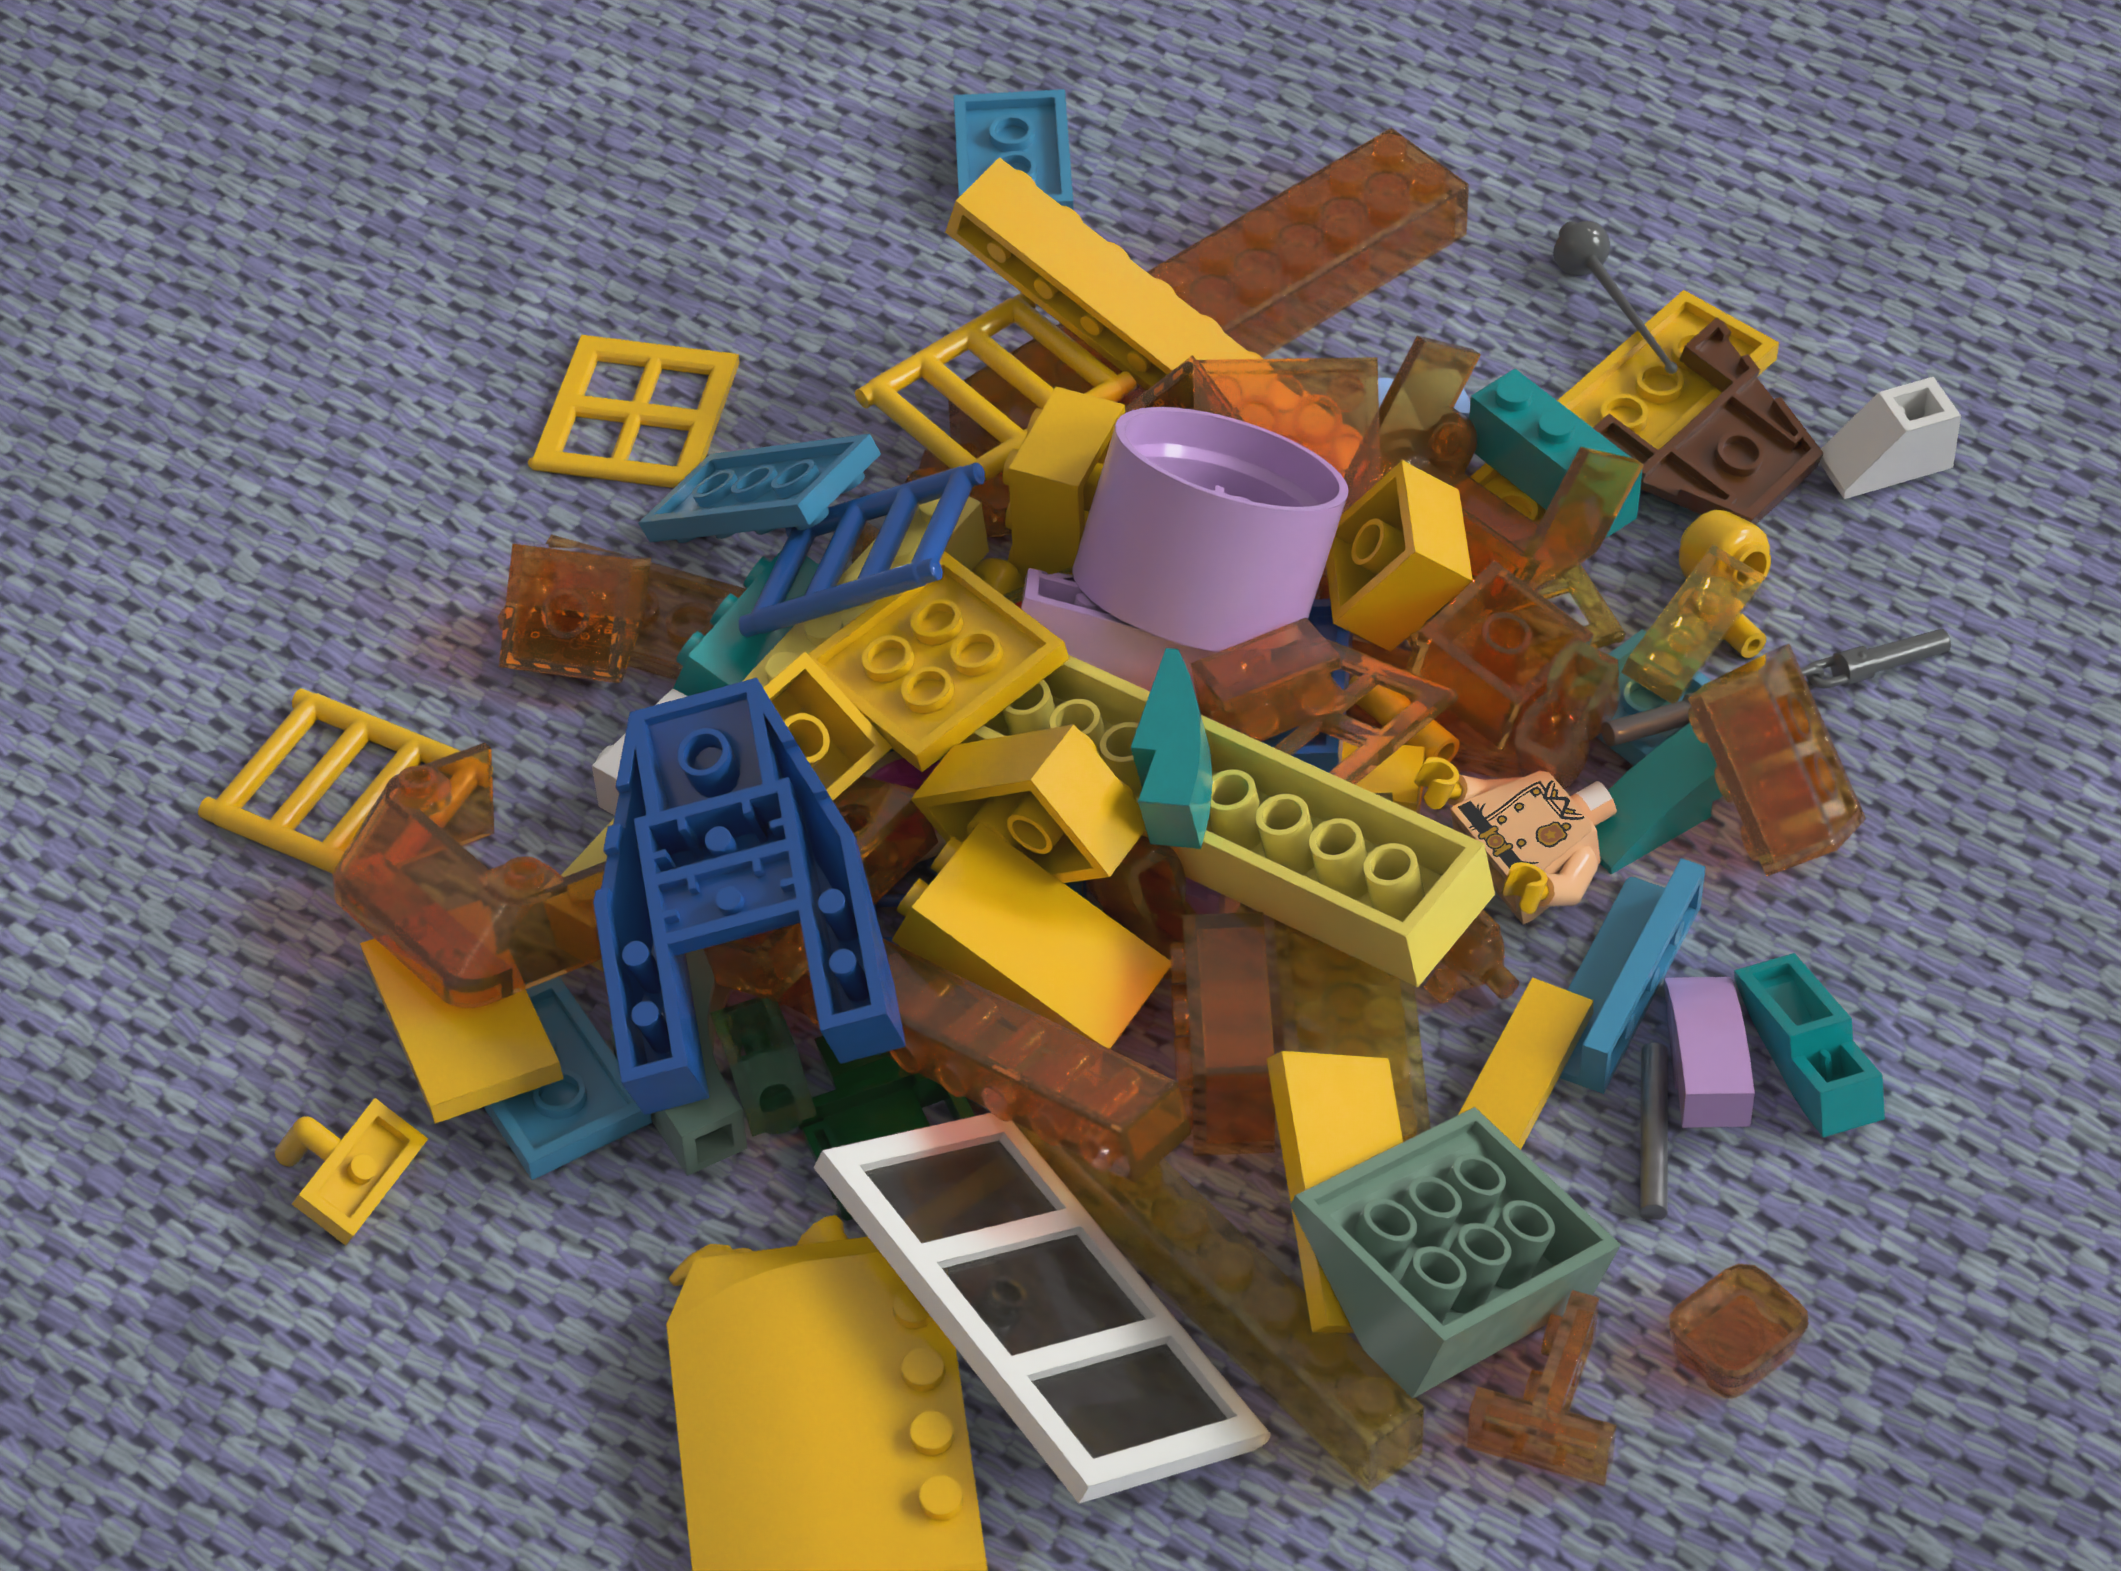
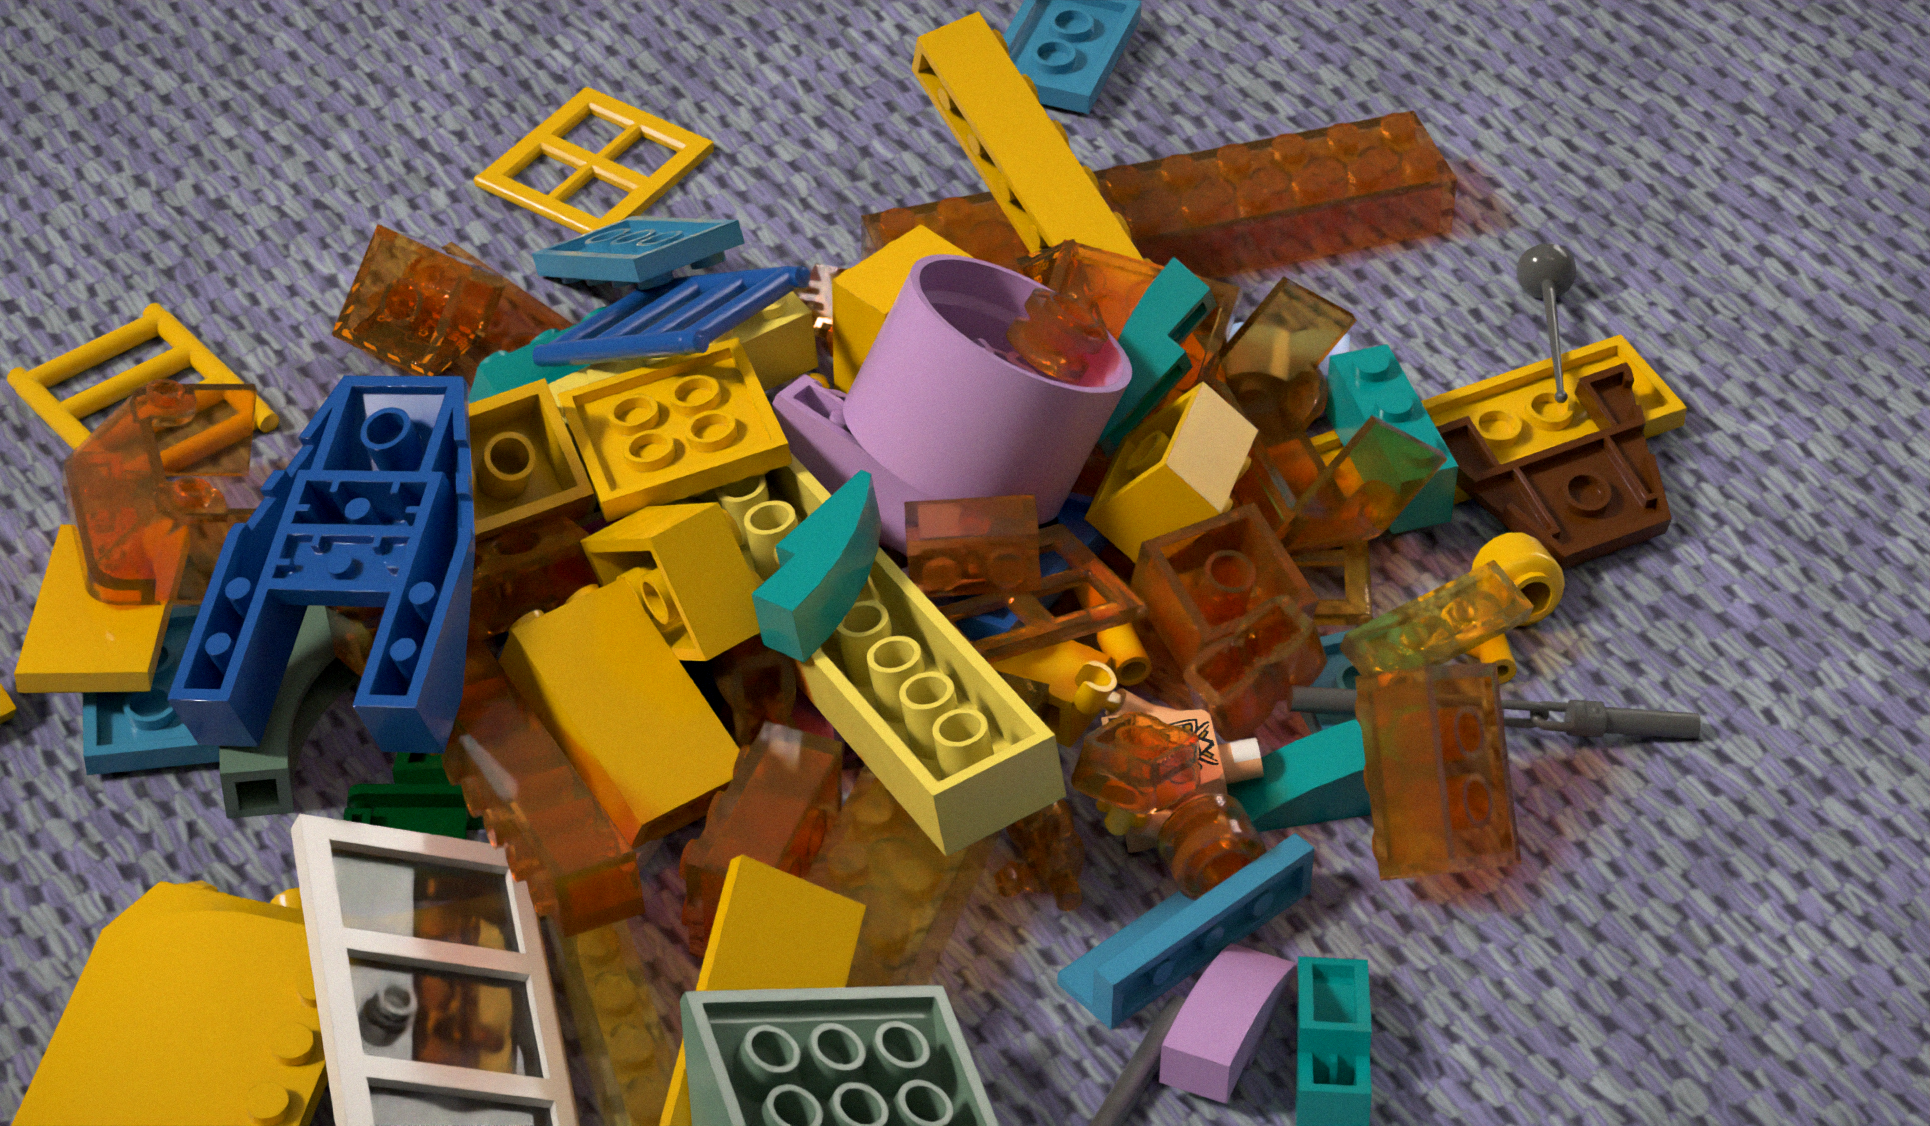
camera: 20 degrees right, 5 degrees down
(768, 1077) = (323, 740): clear green brick -> none
(977, 339) = (905, 177): yellow bar -> none
(1252, 458) = (1056, 335): none -> clear orange wheel
(1326, 408) = (1152, 342): none -> teal slope
(1529, 1058) = (1037, 978): yellow tile -> none
(1531, 841) = (1138, 764): none -> clear orange piece
(1613, 896) = (1208, 843): none -> clear orange wheel
(1894, 439) = (1745, 526): white slope -> none

